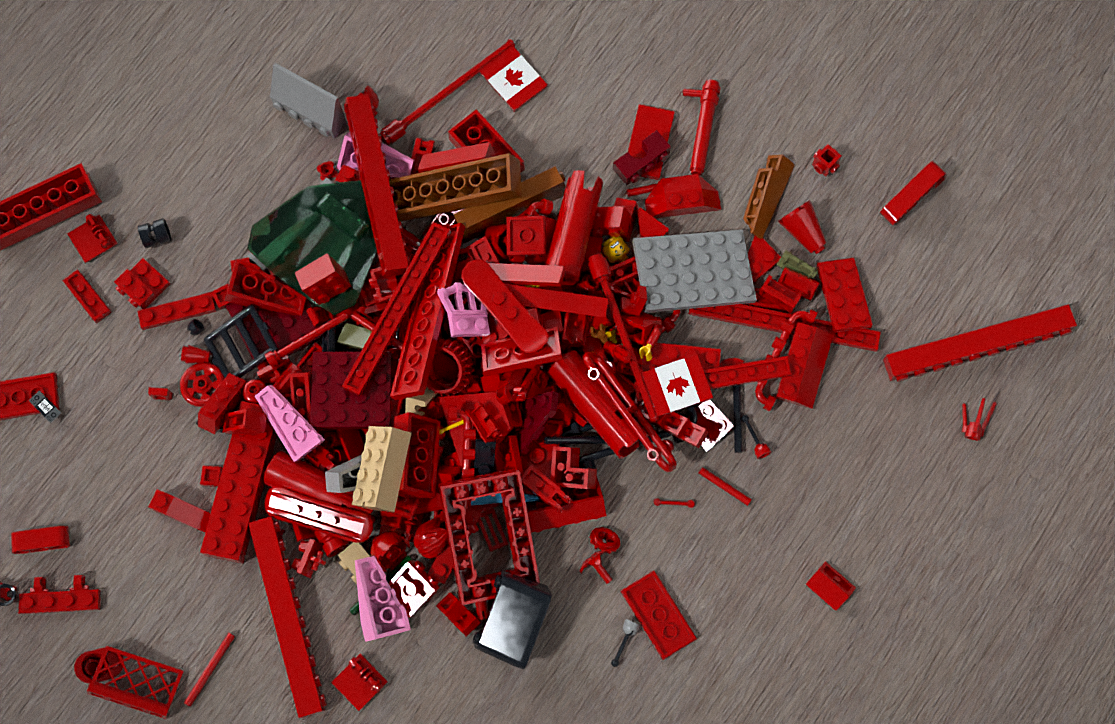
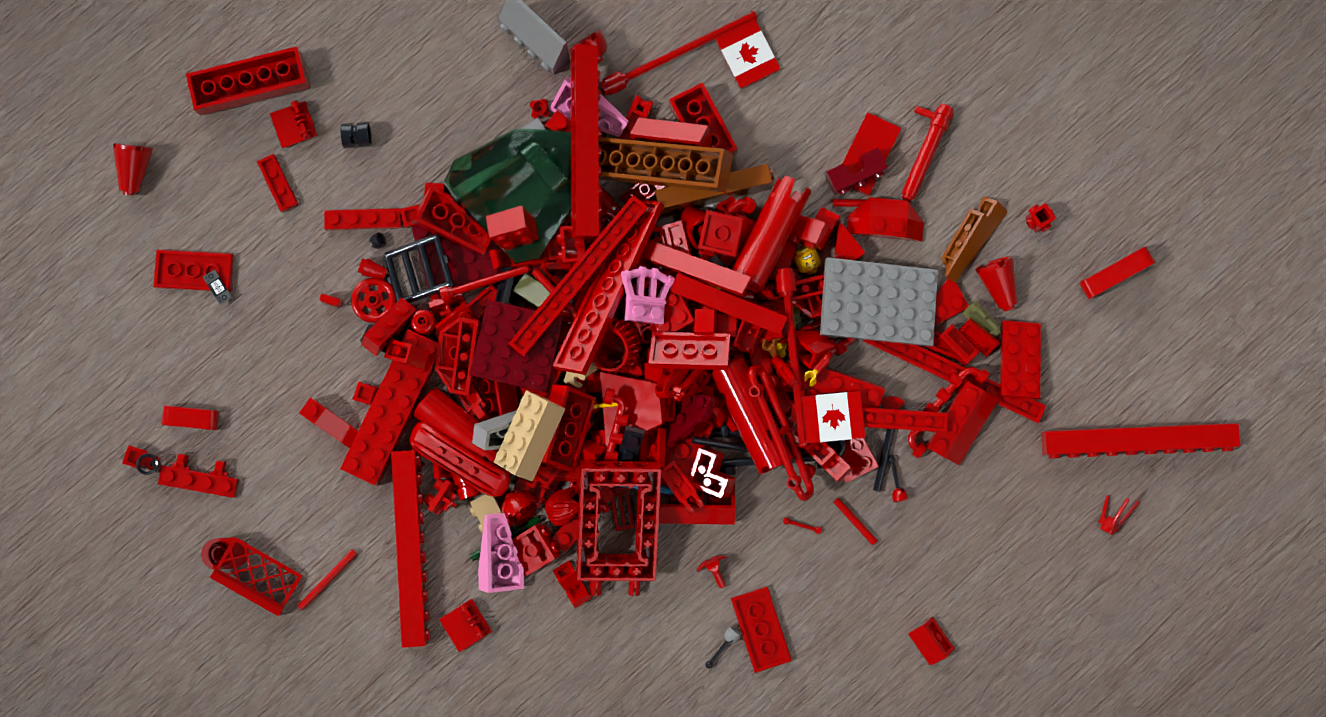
camera: 10 degrees right, 10 degrees up
(141, 284) = (333, 184): red plate -> none
(288, 423) = (449, 366): bright pink wing -> none
(488, 429) = (639, 420): red hinge -> none
(504, 306) = (683, 302): red piece -> none
(514, 619) = (624, 606): black windscreen -> none
(612, 539) = (733, 546): red gear -> none
(636, 303) = (812, 324): red bracket -> none

